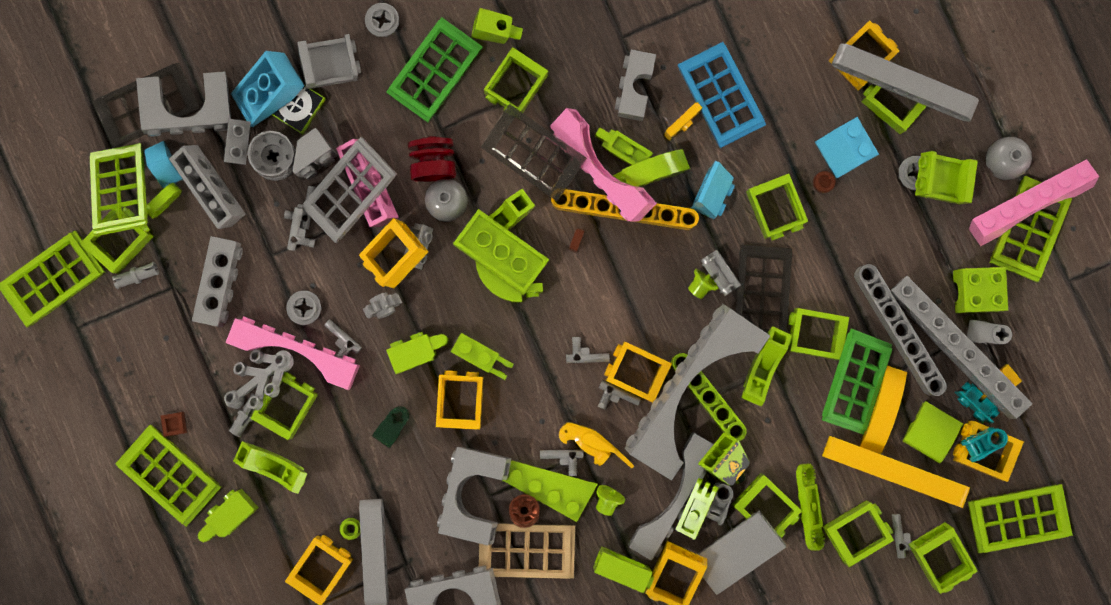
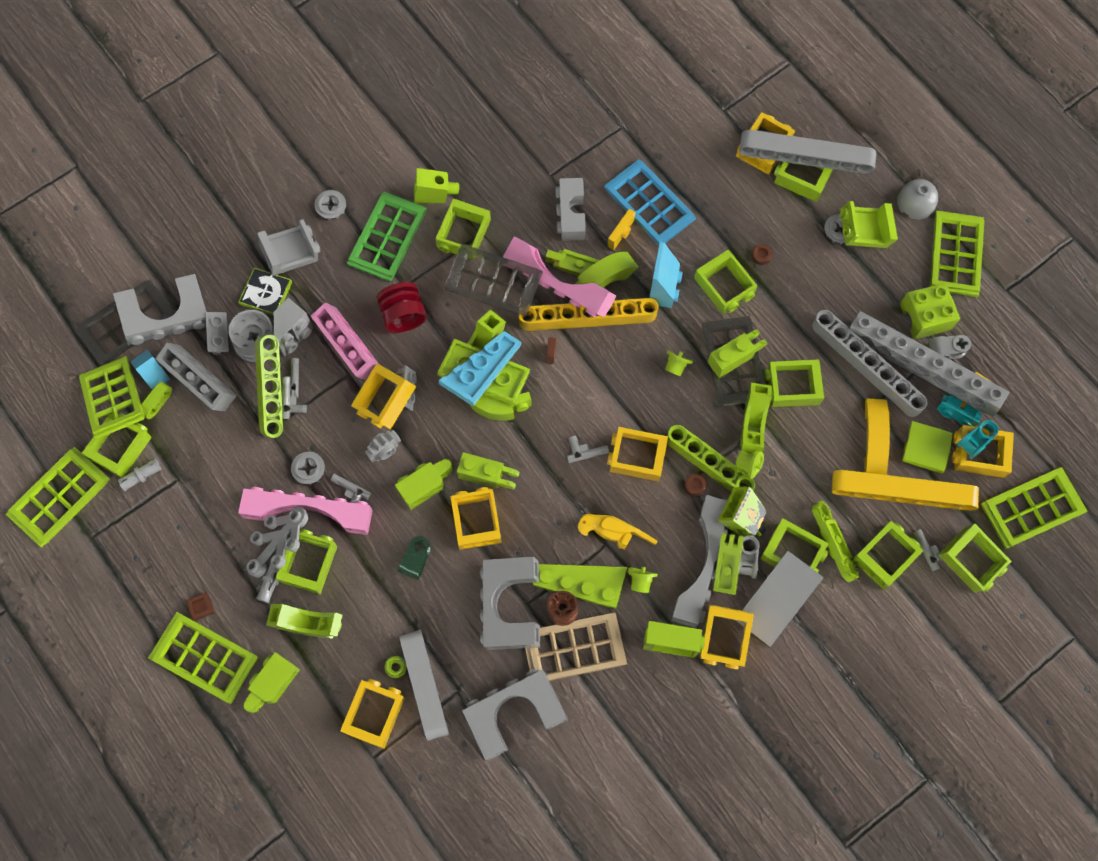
camera: 10 degrees left, 15 degrees down
(207, 291) = (216, 431): light grey brick -> none
(267, 87) = (236, 279): medium azure slope -> none
(275, 208) = (275, 394): none -> lime beam
(374, 160) = (311, 382): light grey piece -> none
(446, 200) = (422, 343): light grey cylinder -> none
(492, 256) = (481, 369): none -> medium azure wing
(564, 458) = (589, 551): light grey hose -> none
(615, 395) = (622, 482): light grey hose -> none
(687, 415) = (695, 485): none -> copper tile
(720, 272) = (690, 349): light grey hinge -> none
(724, 336) = (670, 505): light grey arch -> none
(746, 412) = (750, 462): none -> lime piece
(764, 290) = (735, 353): none -> lime hinge
(846, 147) = (773, 220): medium azure slope -> none
(869, 343) = (836, 452): bright green piece -> none
(1006, 215) = (927, 247): bright pink arch -> none

